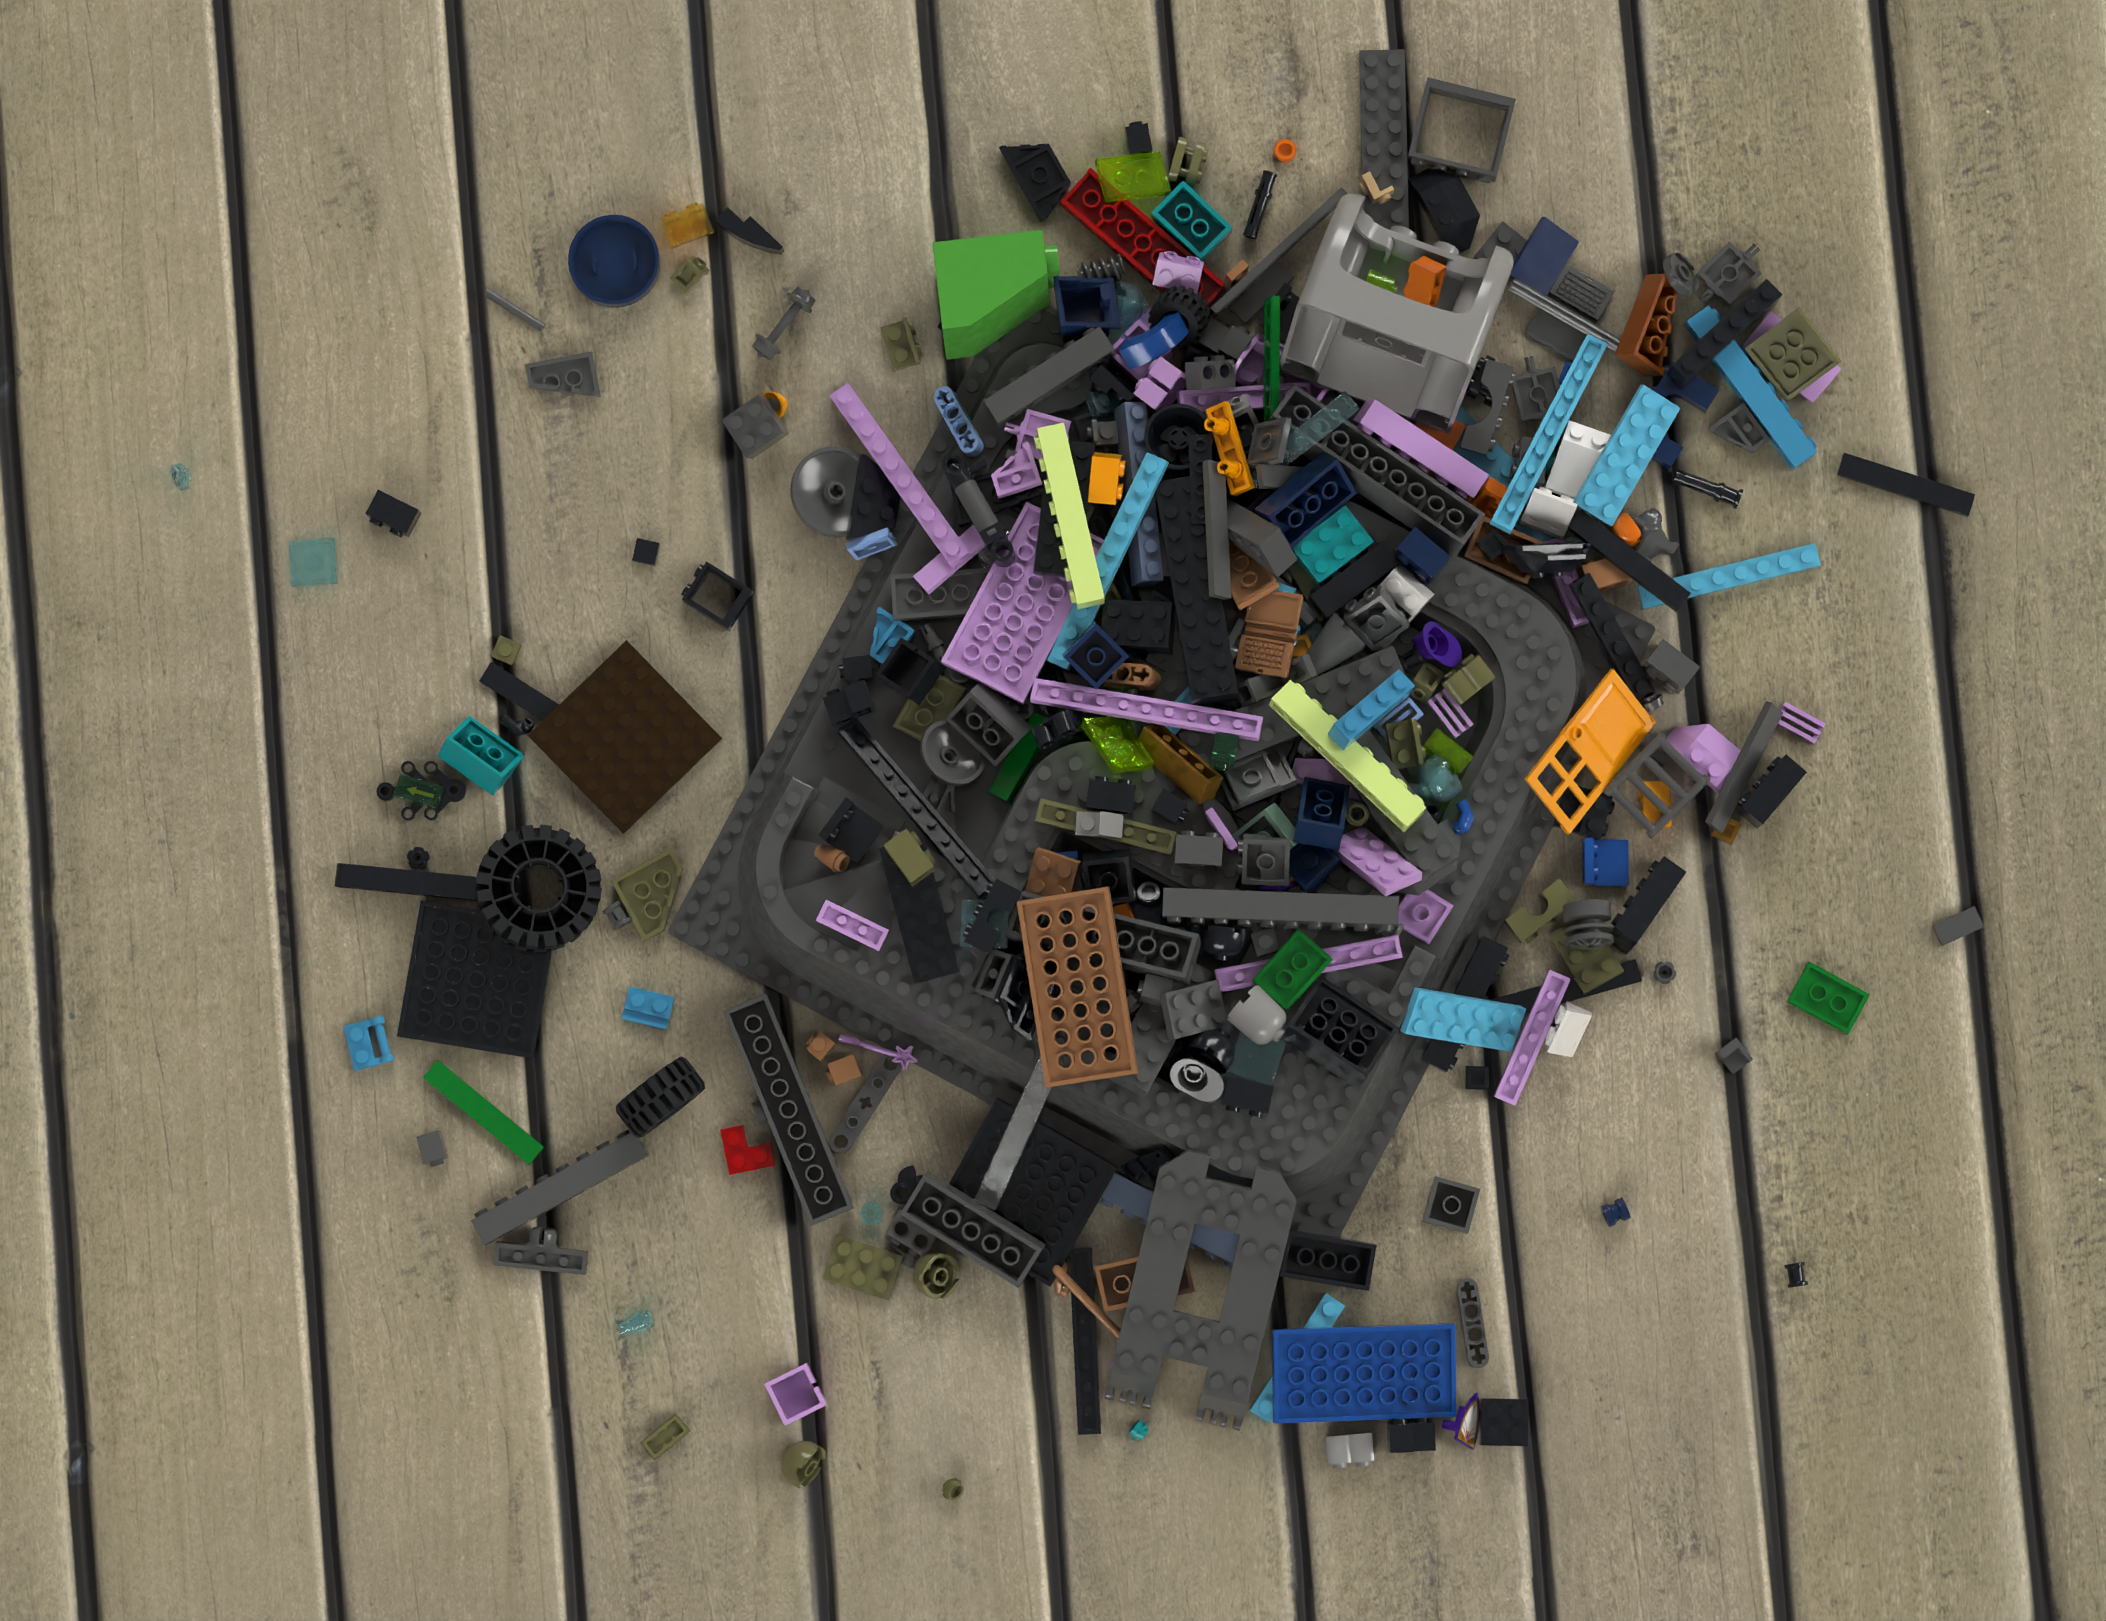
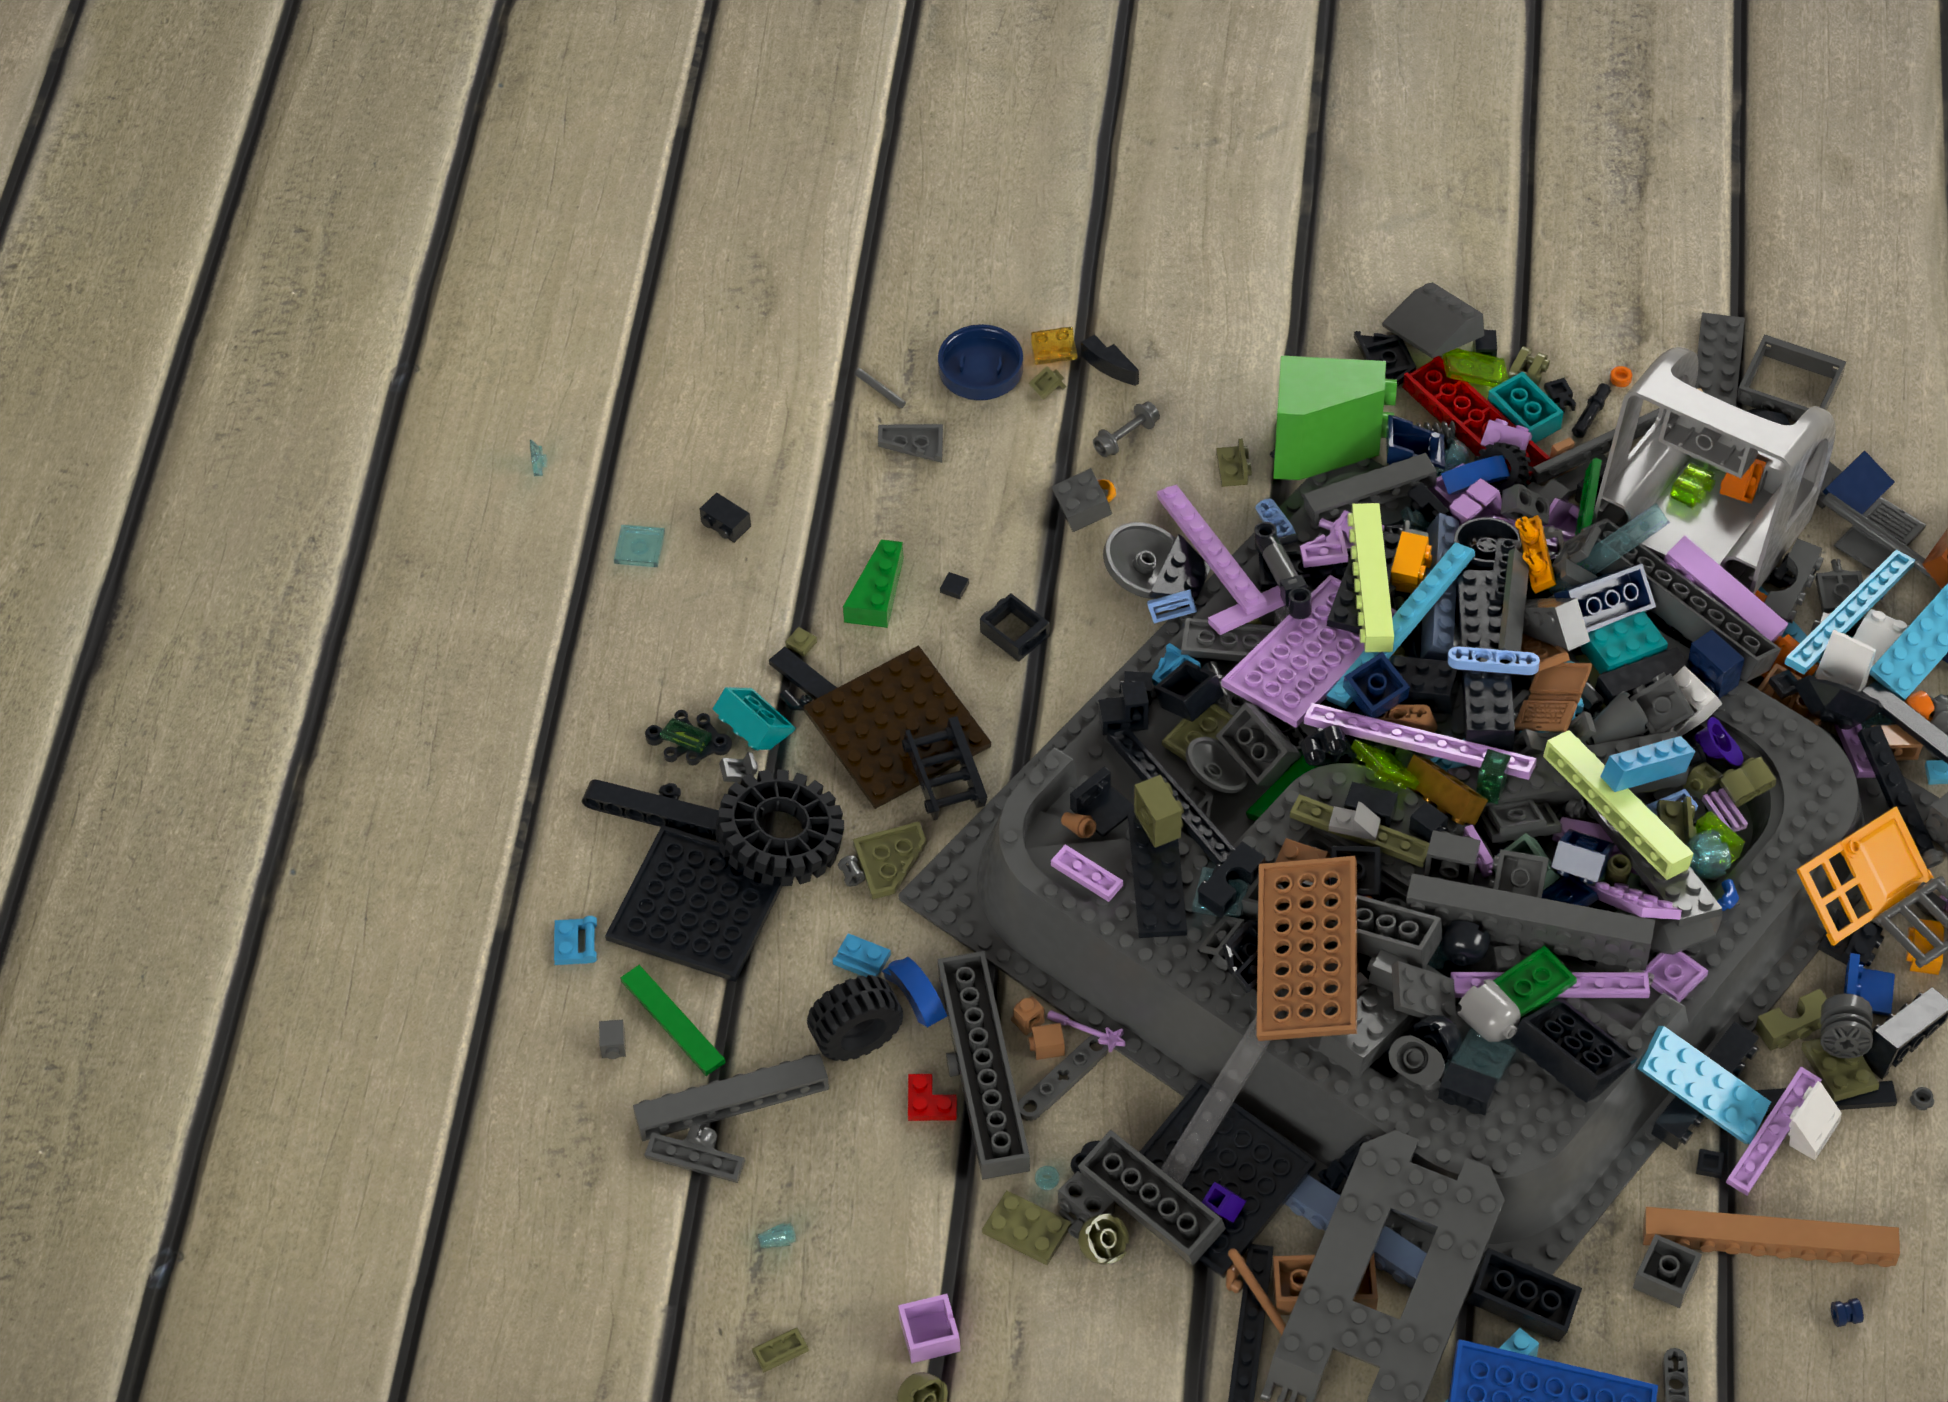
camera: 10 degrees right, 30 degrees down
(480, 819) = (735, 769): none -> dark grey bracket
(568, 575) = (875, 590): none -> green wedge
(694, 766) = (961, 753): none -> black fence
(707, 1041) = (917, 989): none -> blue arch
(1040, 1226) = (1223, 1202): none -> dark purple brick
(1081, 127) = (1435, 321): none -> dark grey slope
(1206, 613) = (1493, 663): none -> light blue beam
(1224, 188) = (1560, 393): none -> black plate
(1540, 1147) = (1774, 1236): none -> medium nougat brick

